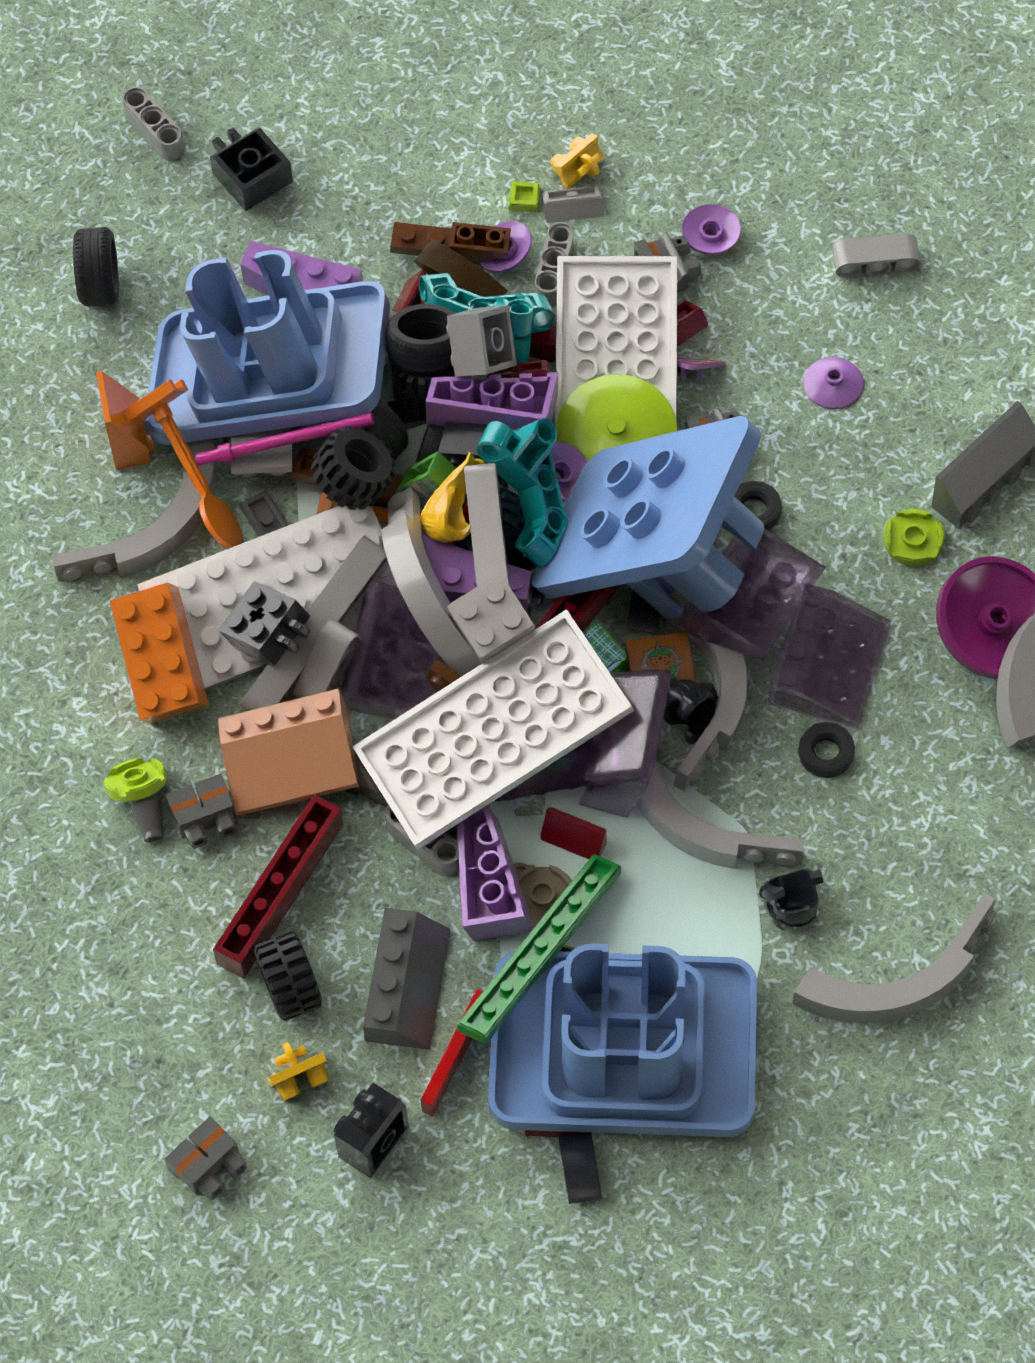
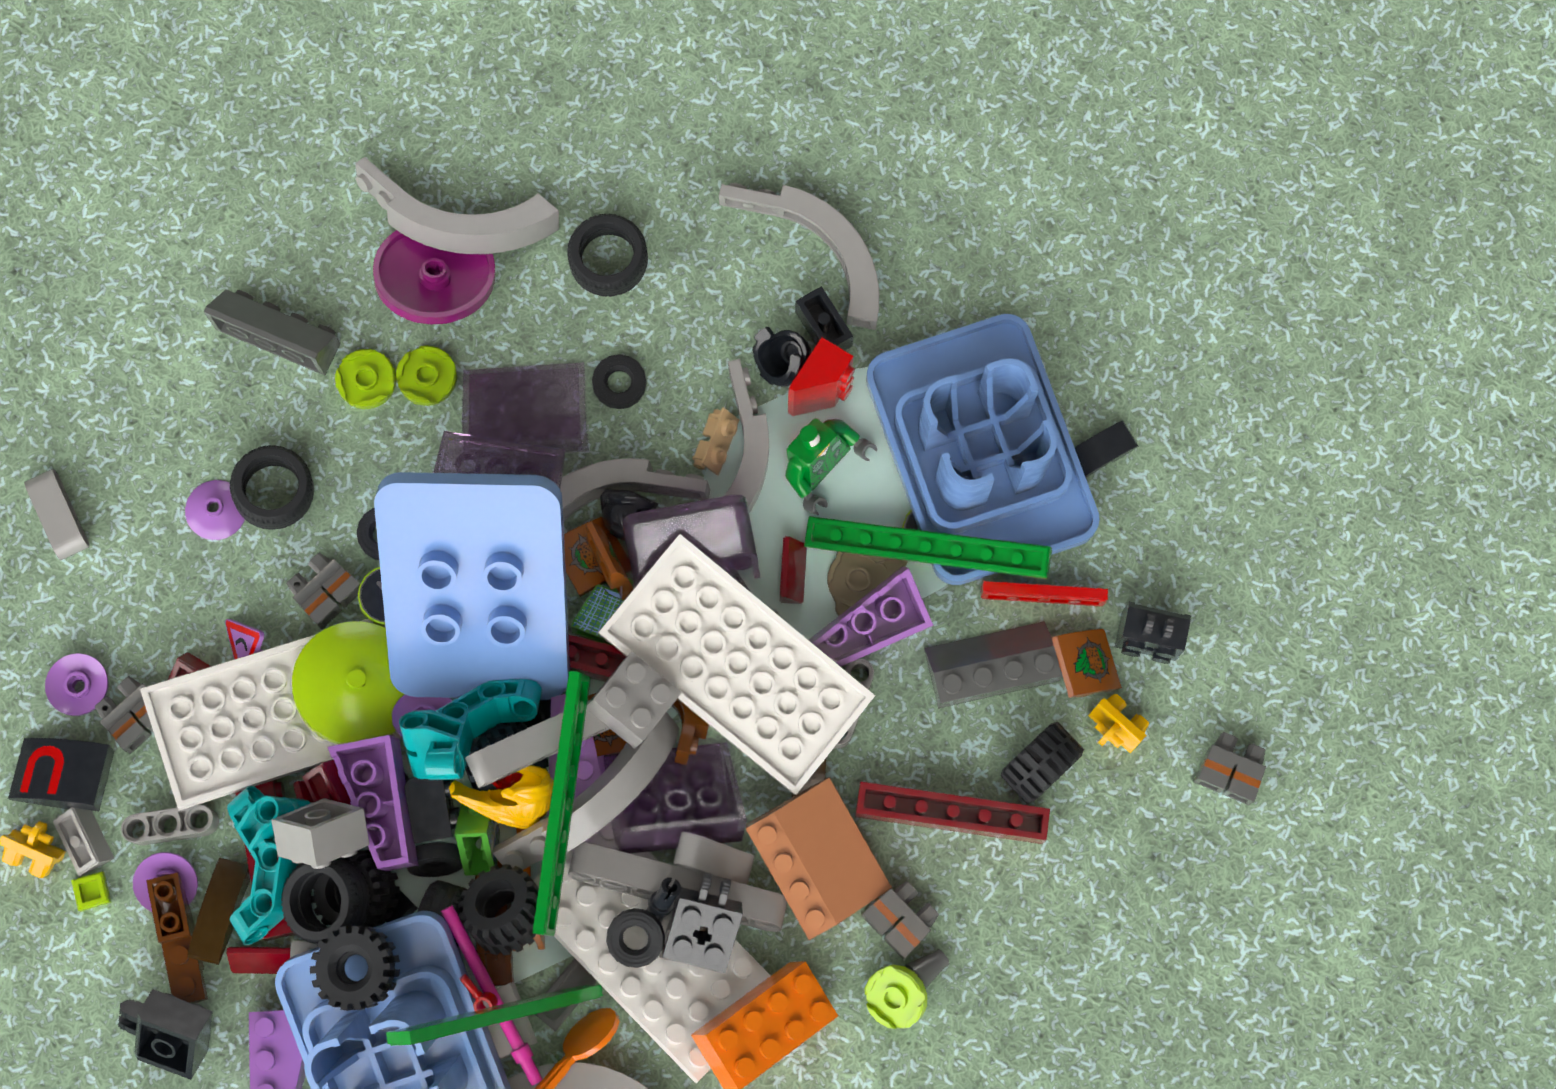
camera: 115 degrees left, 15 degrees up
(259, 416) = (493, 1015): none -> green tile
(277, 554) = (628, 956): none -> black tyre
(279, 423) = (489, 997): none -> red hand
(305, 596) = (662, 901): none -> black pin
(348, 312) = (331, 967): none -> black tyre
(367, 1057) = (1086, 662): none -> dark orange slope
(372, 210) = (168, 1032): none -> black hinge
(421, 526) = (561, 804): none -> green tile
(634, 198) = (62, 773): none -> black slope
(641, 655) = (607, 560): none -> dark orange slope
(679, 891) = (816, 453): none -> green torso
(726, 811) = (720, 428): none -> tan hinge
(751, 910) = (822, 380): none -> red slope
(811, 945) = (823, 319): none -> black brick
(837, 397) = (259, 459): none -> black tyre
(895, 598) = (433, 381): none -> lime tile
(959, 805) = (607, 284): none -> black tyre

